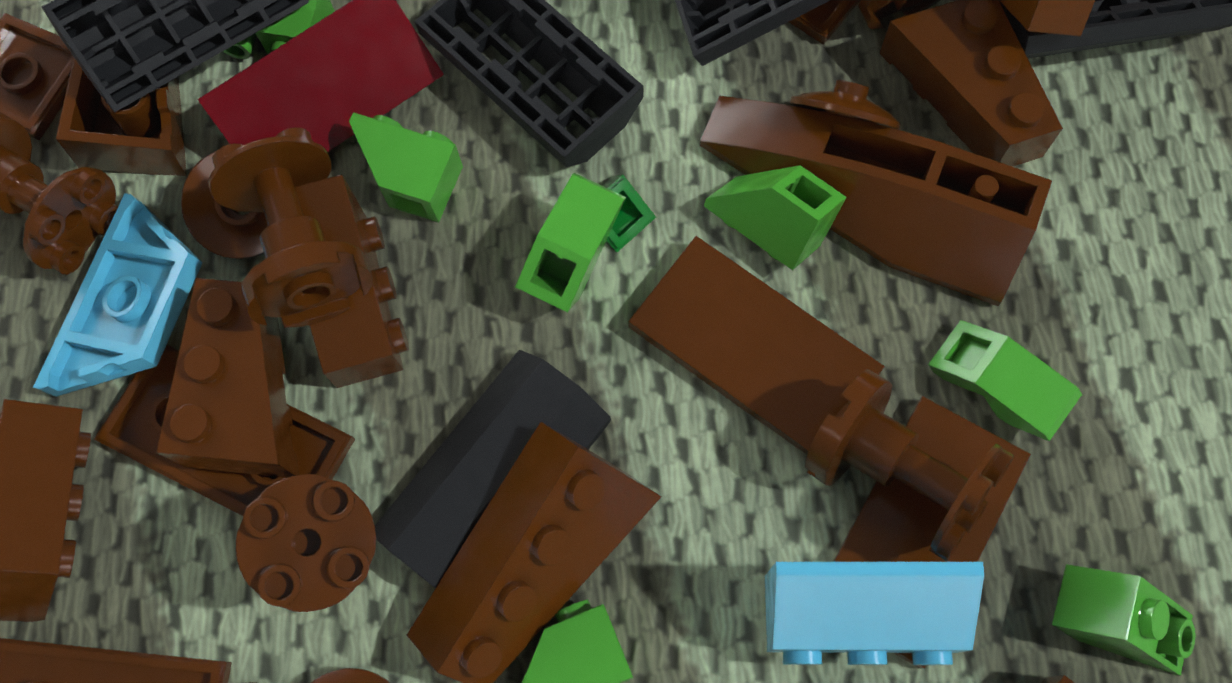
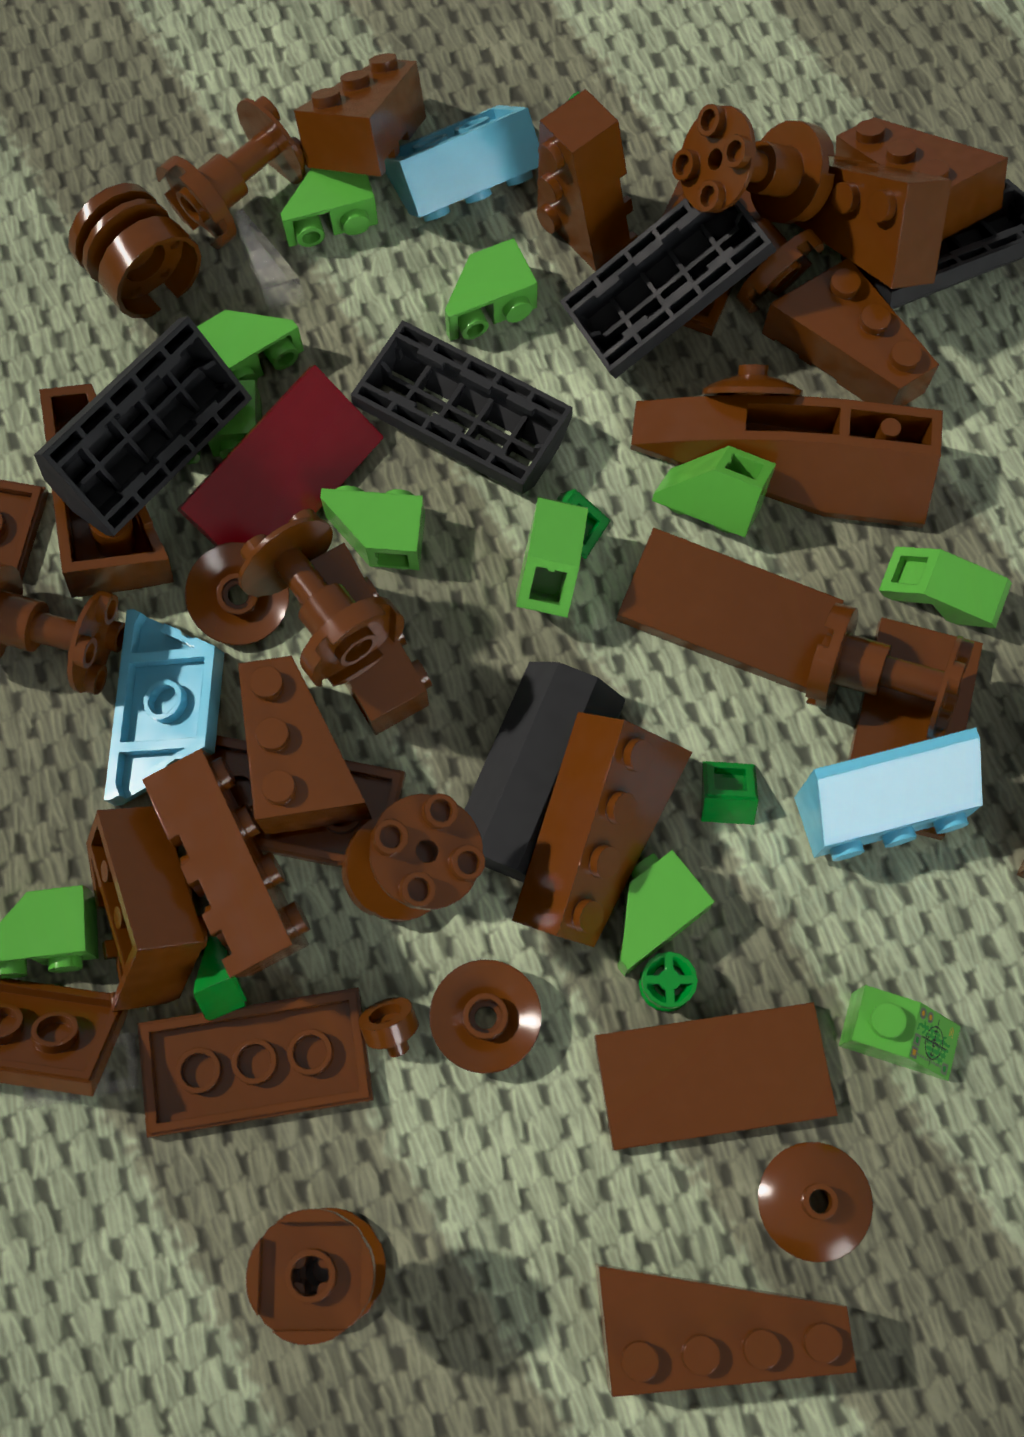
camera: 20 degrees left, 0 degrees up
(77, 615) = (213, 987): none -> green slope
(121, 496) = (227, 863): none -> reddish brown wedge
(692, 554) = (729, 793): none -> green slope

